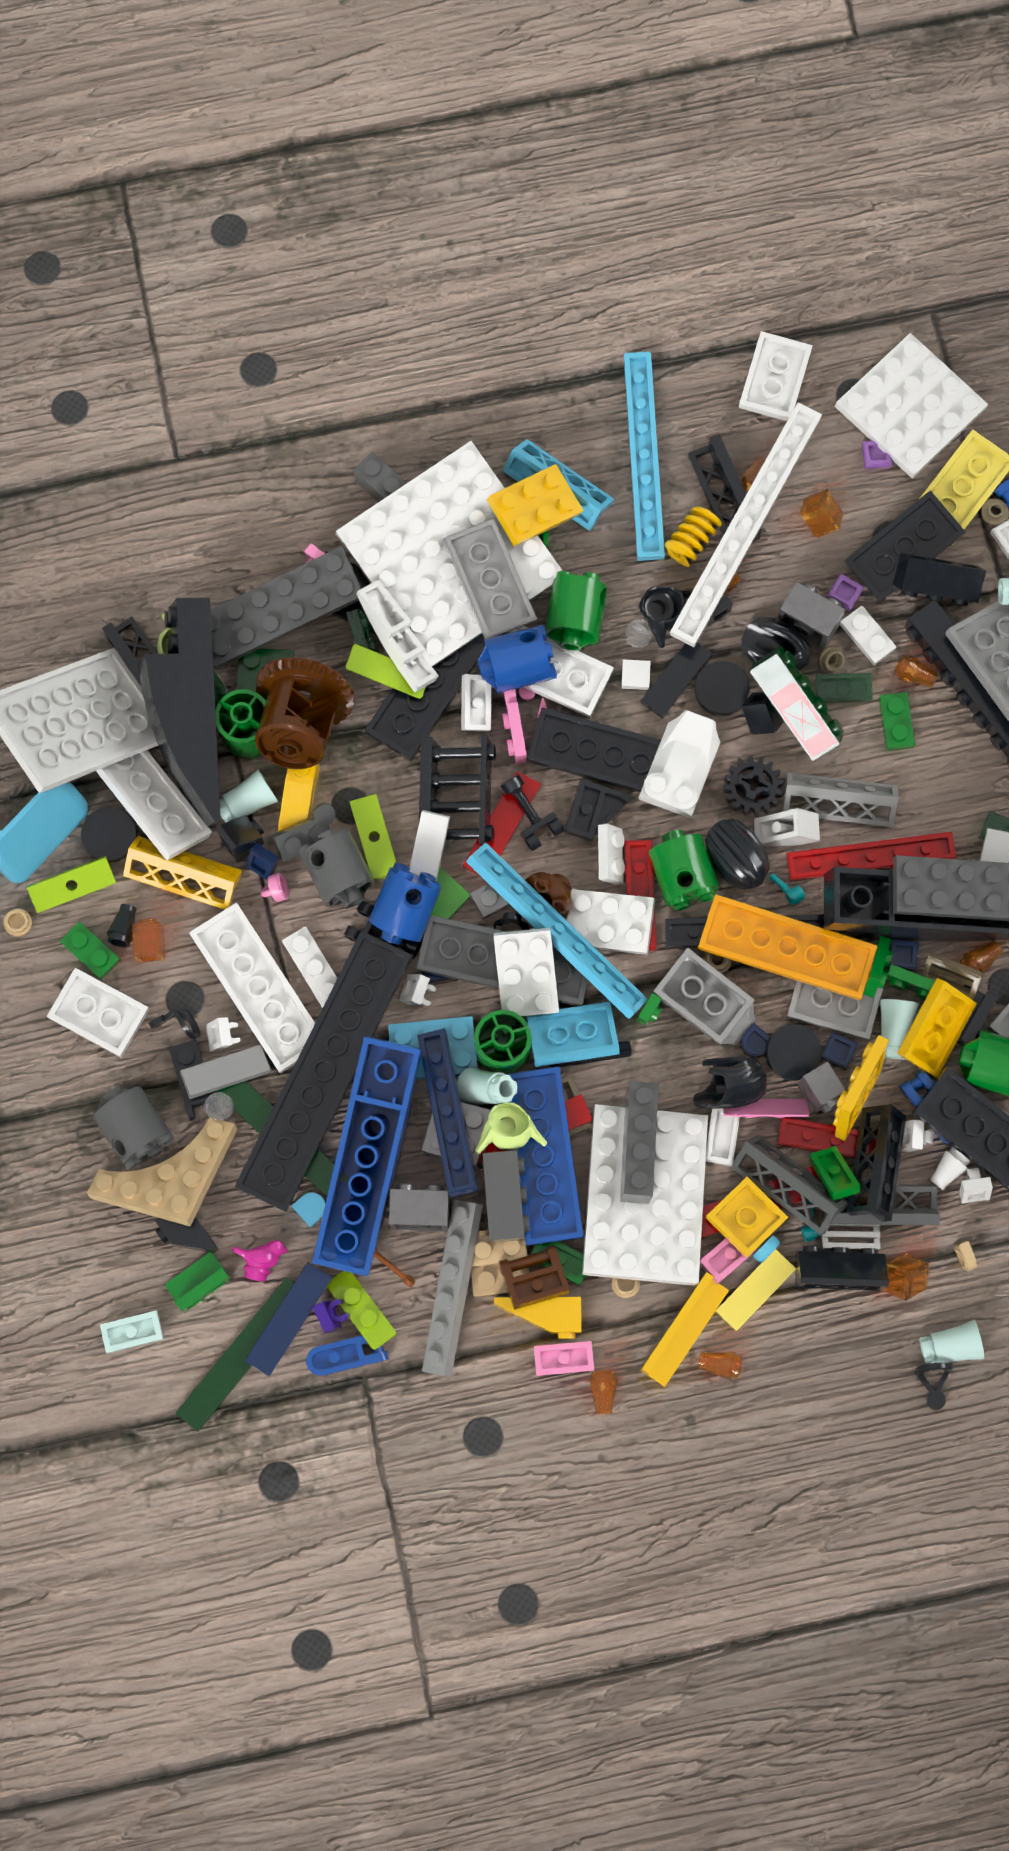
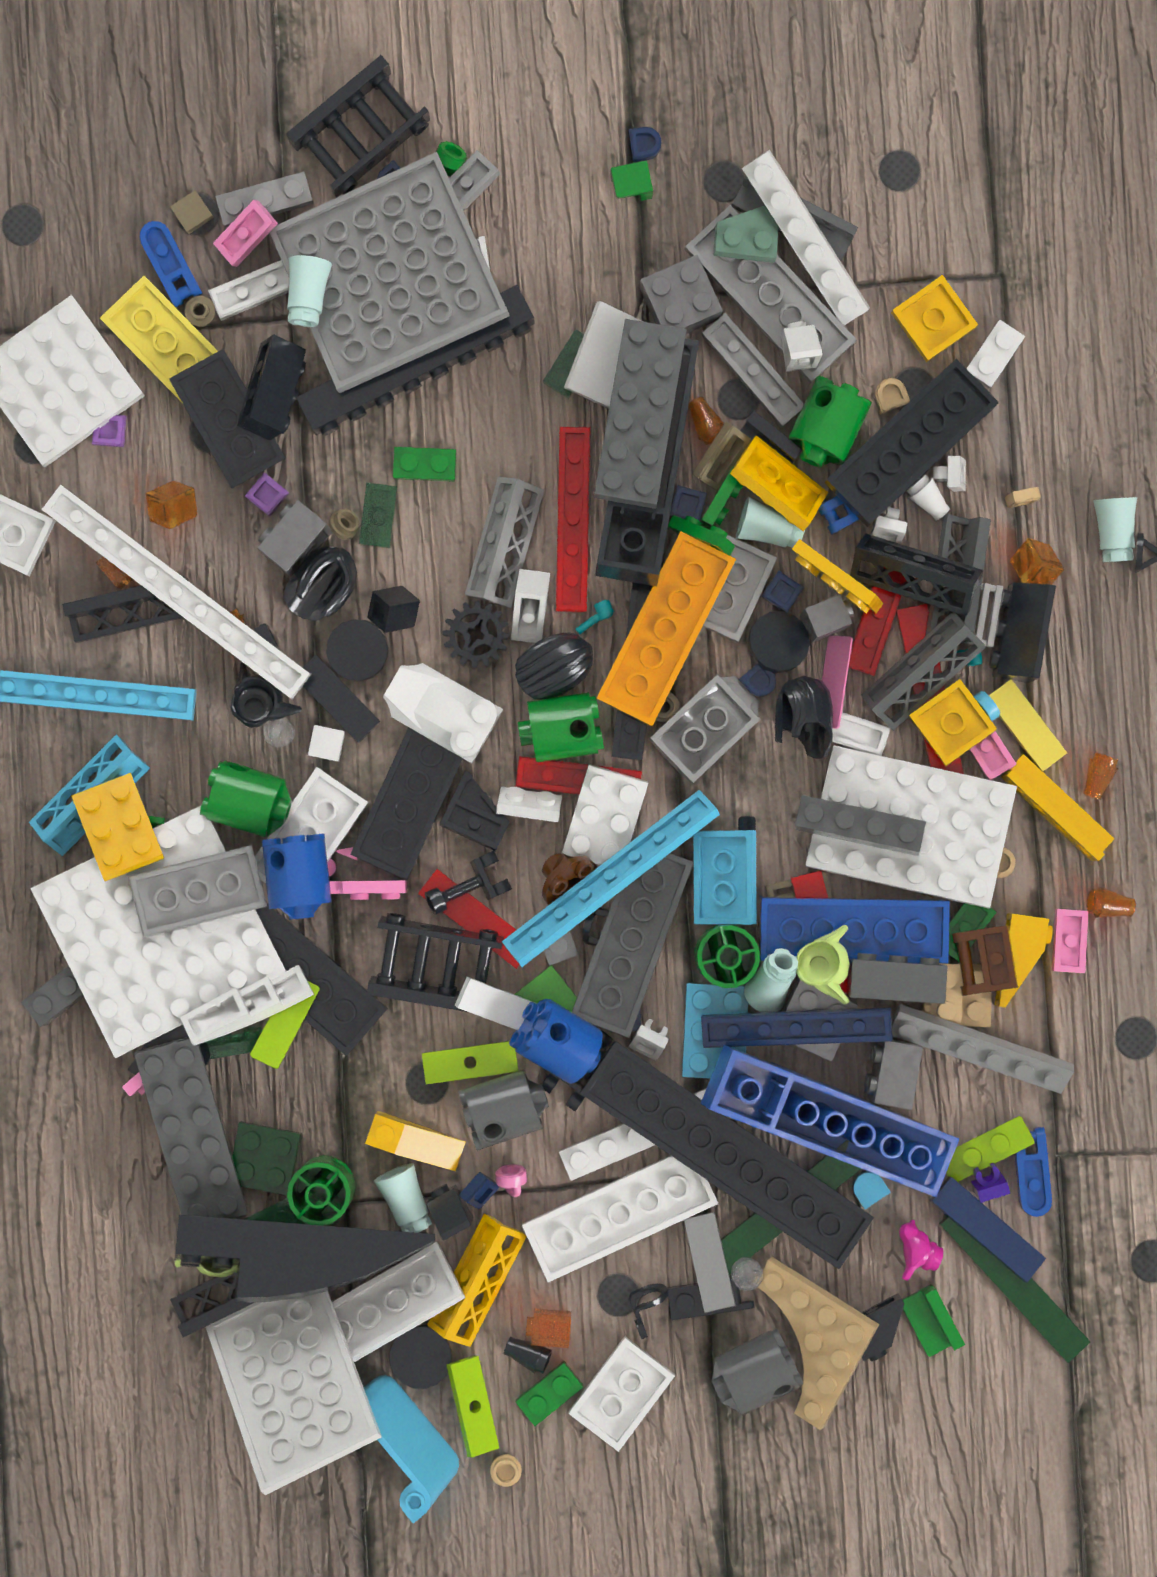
camera: 85 degrees left, 10 degrees up
(131, 1332) = (975, 1399): light aqua plate -> none
(219, 1034) = (666, 1262): white tile -> none
(297, 717) = (299, 1127): reddish brown piece -> none
(302, 833) = (455, 1138): dark grey hinge -> none
(408, 1280) = (962, 1094): dark orange hinge -> none
(475, 704) = (335, 927): white plate -> none
(526, 971) = (653, 918): white plate -> none
(650, 1010) = (710, 788): green plate -> none
(690, 534) = (175, 654): yellow piece -> none
(797, 703) = (394, 571): brick -> none
(834, 1173) = (921, 621): green plate -> none
(868, 635) = (321, 478): white plate -> none
(915, 672) = (372, 434): clear orange cone -> none

